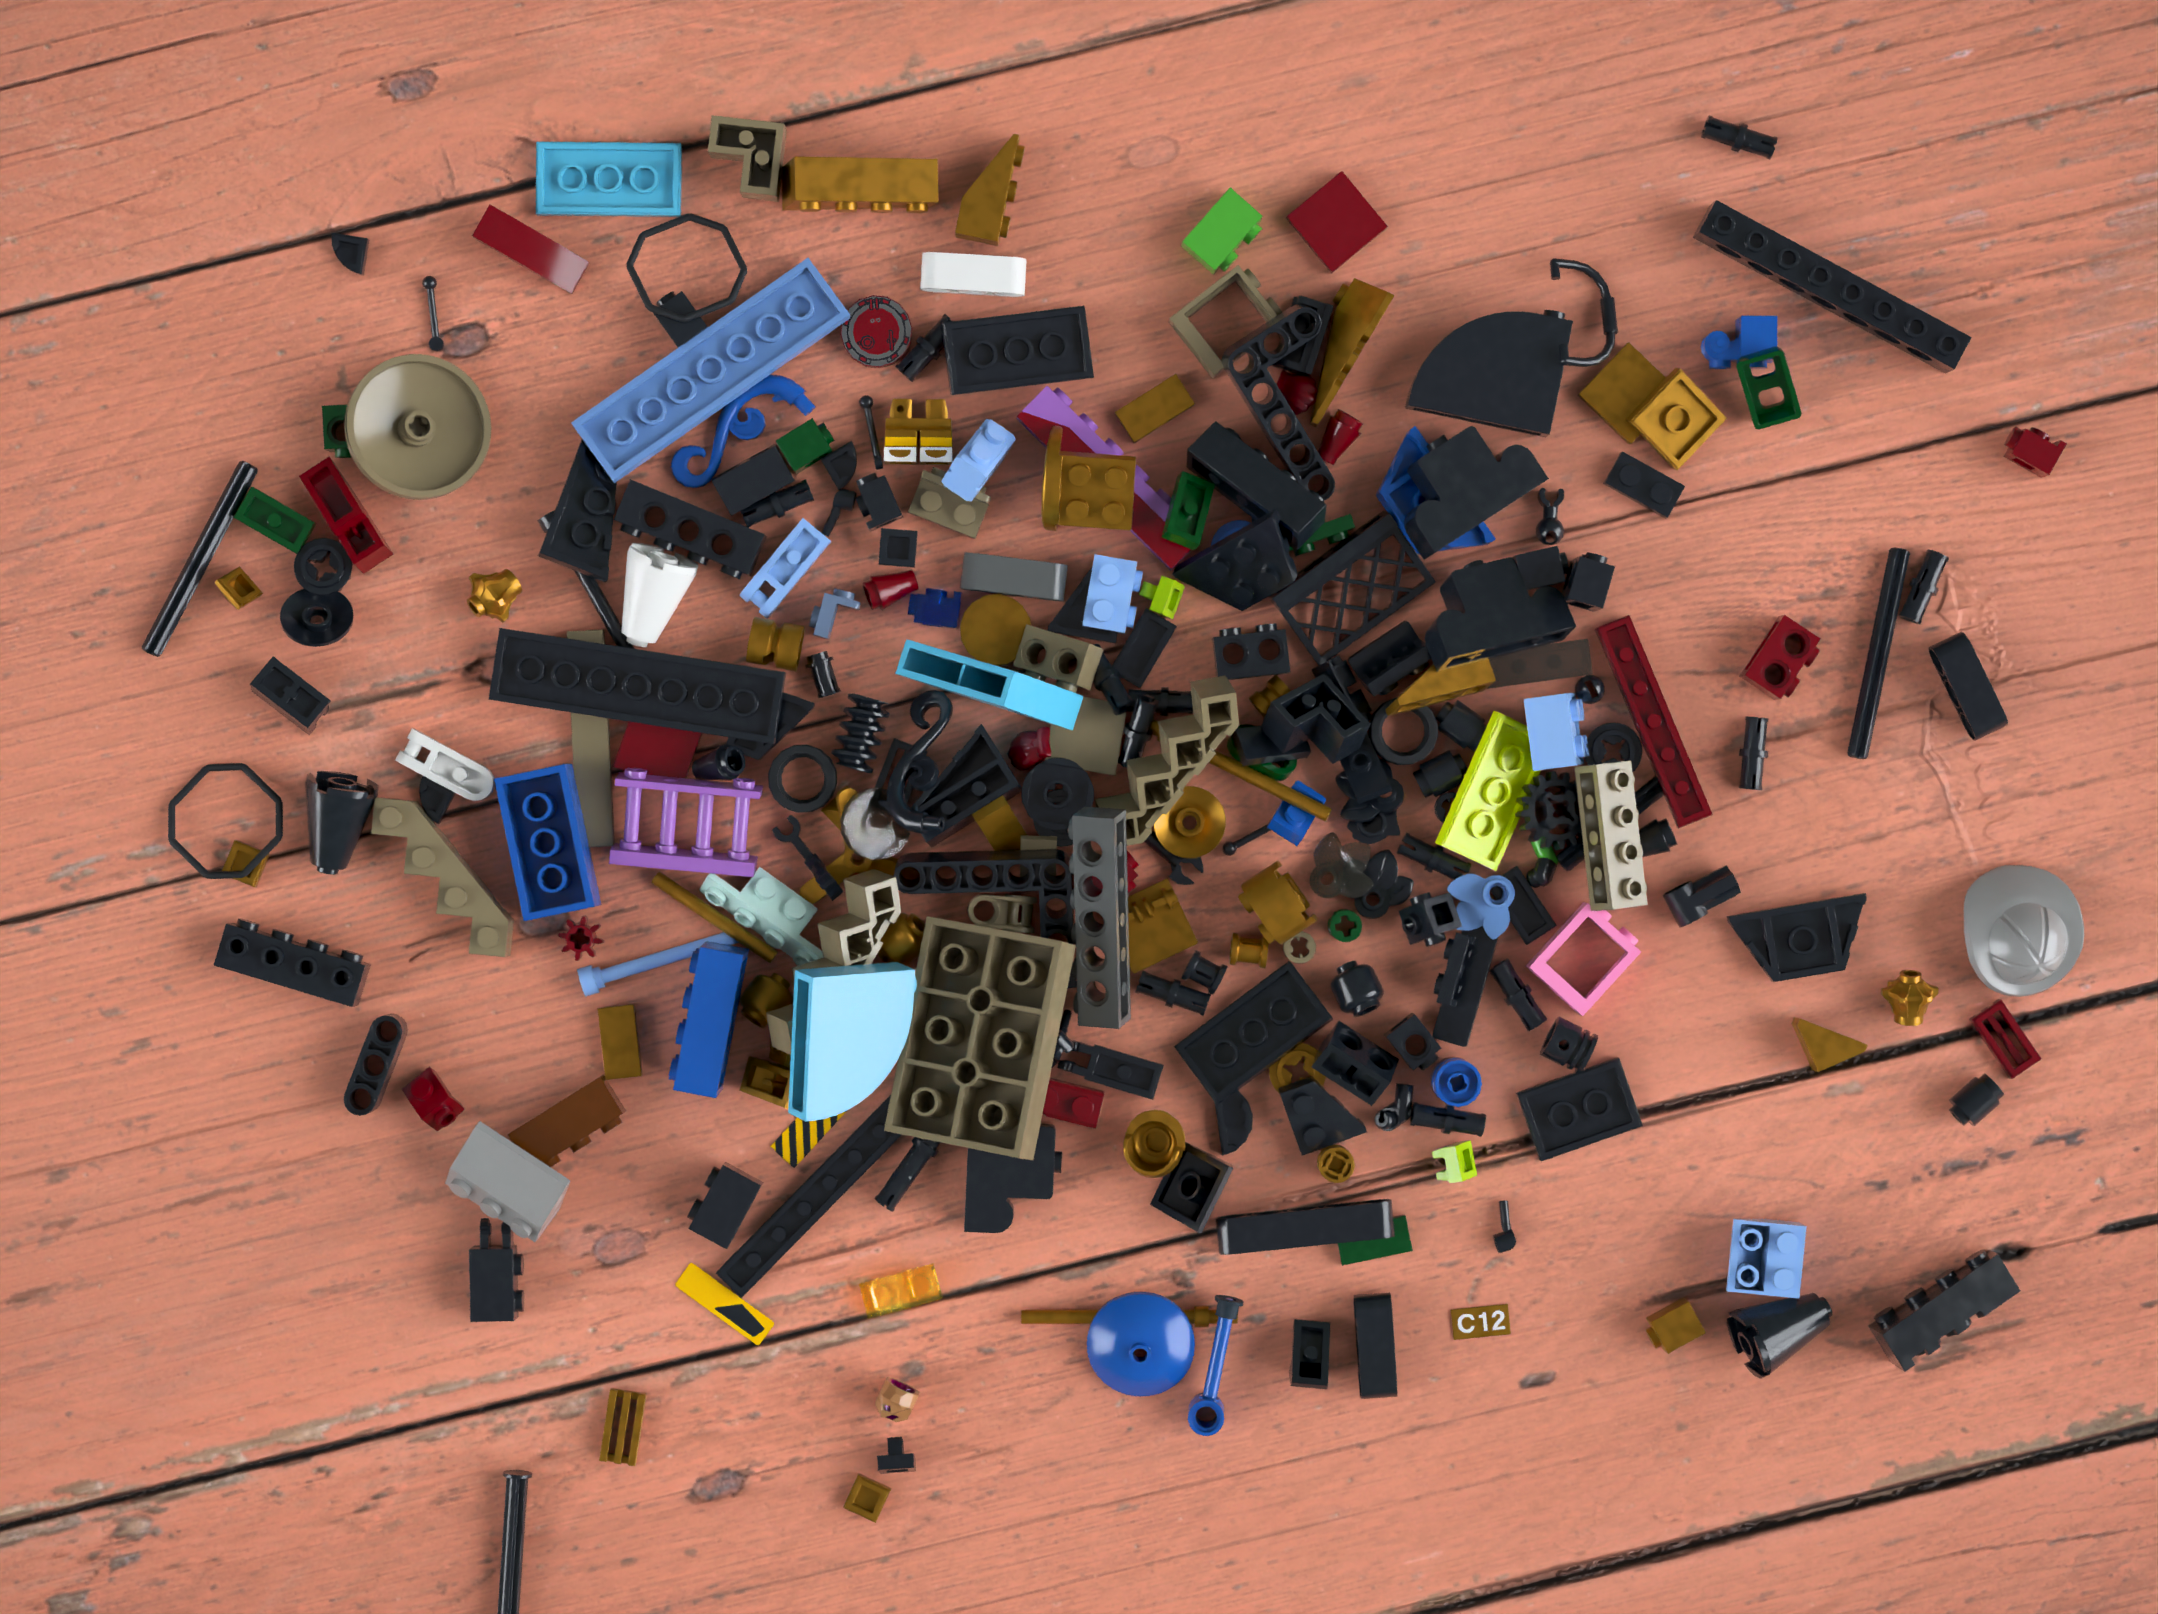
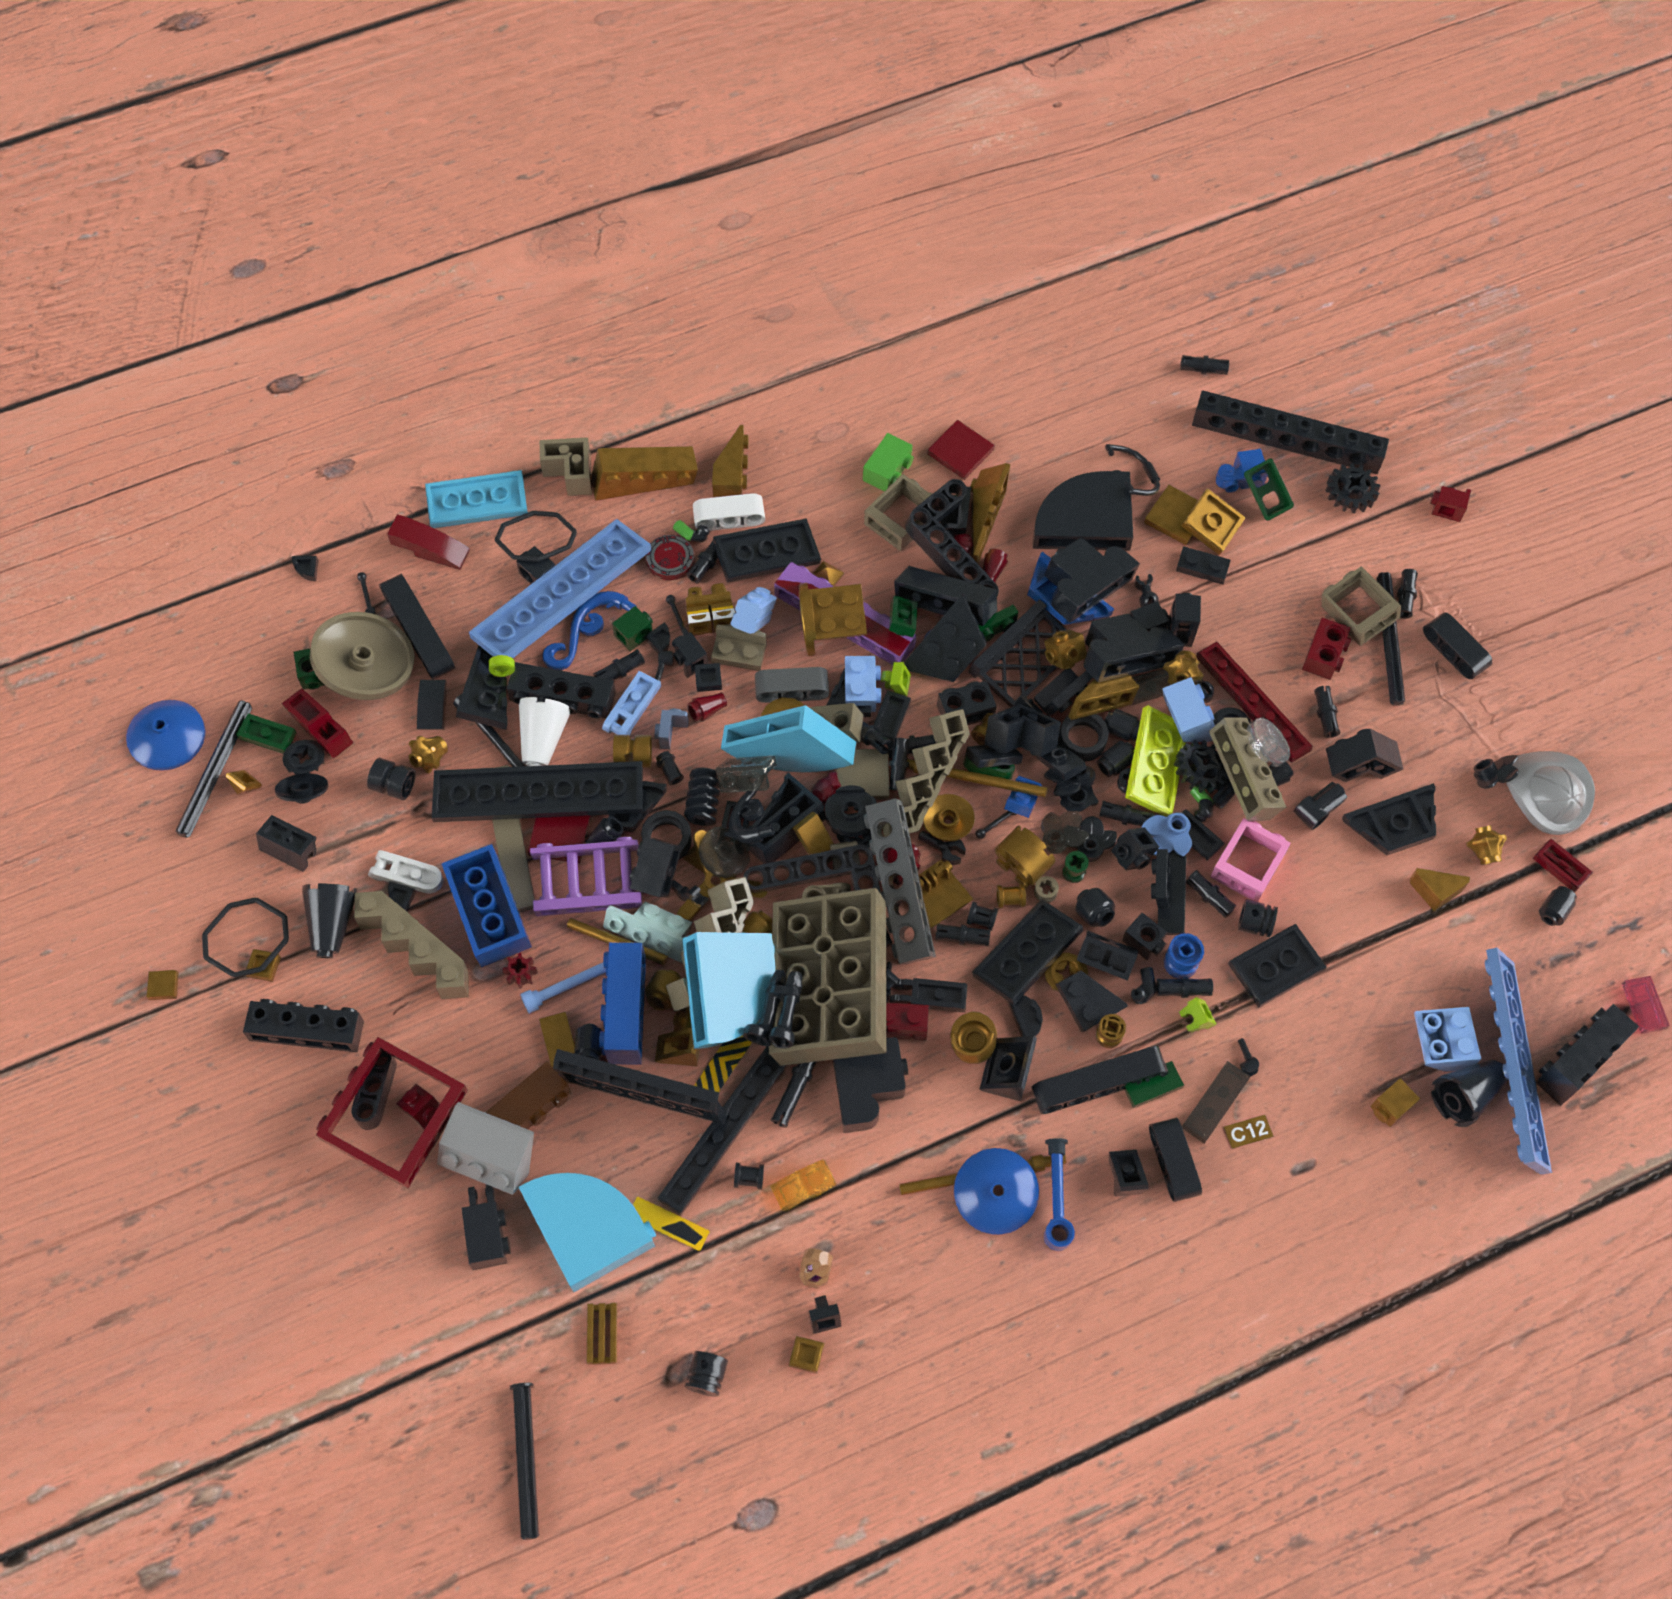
camera: 15 degrees left, 25 degrees down
(112, 868) = (162, 985): none -> pearl gold tile
(159, 498) = (170, 745): none -> blue dish
(355, 1063) = (430, 1134): none -> dark red window
(440, 626) = (389, 778): none -> black wheel
(499, 385) = (417, 626): none -> black beam
(507, 514) = (431, 704): none -> black slope
(610, 488) = (501, 665): none -> lime tile
(621, 1293) = (586, 1225): none -> medium azure brick
(656, 1058) = (588, 1041): none -> black brick
(715, 1143) = (640, 1086): none -> black ladder
(724, 1205) = (656, 1141): black brick -> none
(741, 1503) = (706, 1373): none -> black piece
(752, 479) = (599, 652): black hinge -> none
(779, 831) = (655, 867): none -> black brick
(834, 1267) = (748, 1176): none -> black bush
(881, 1103) = (776, 992): none -> black piece
(913, 301) = (689, 534): none -> arm
(924, 712) = (745, 773): none -> clear smoke bracket
(935, 608) = (740, 709): clear blue brick -> none
(1097, 402) = (829, 573): none -> pearl gold slope
(1154, 408) = (867, 570): pearl gold tile -> none
(1407, 600) = (1065, 649): none -> pearl gold brick
(1448, 1278) = (1216, 1102): none -> clear smoke tile
(1566, 661) = (1183, 667): none -> pearl gold rock
(1648, 807) = (1268, 742): none -> clear tile
(1787, 839) = (1364, 754): none -> black brick
(1844, 560) = (1374, 624): none -> dark tan window
(1849, 1304) = (1518, 1064): none -> medium blue plate
(1889, 388) = (1352, 488): none -> black gear
(1955, 895) = (1490, 772): none -> black plate
(2046, 1252) = (1645, 1004): none -> clear pink tile

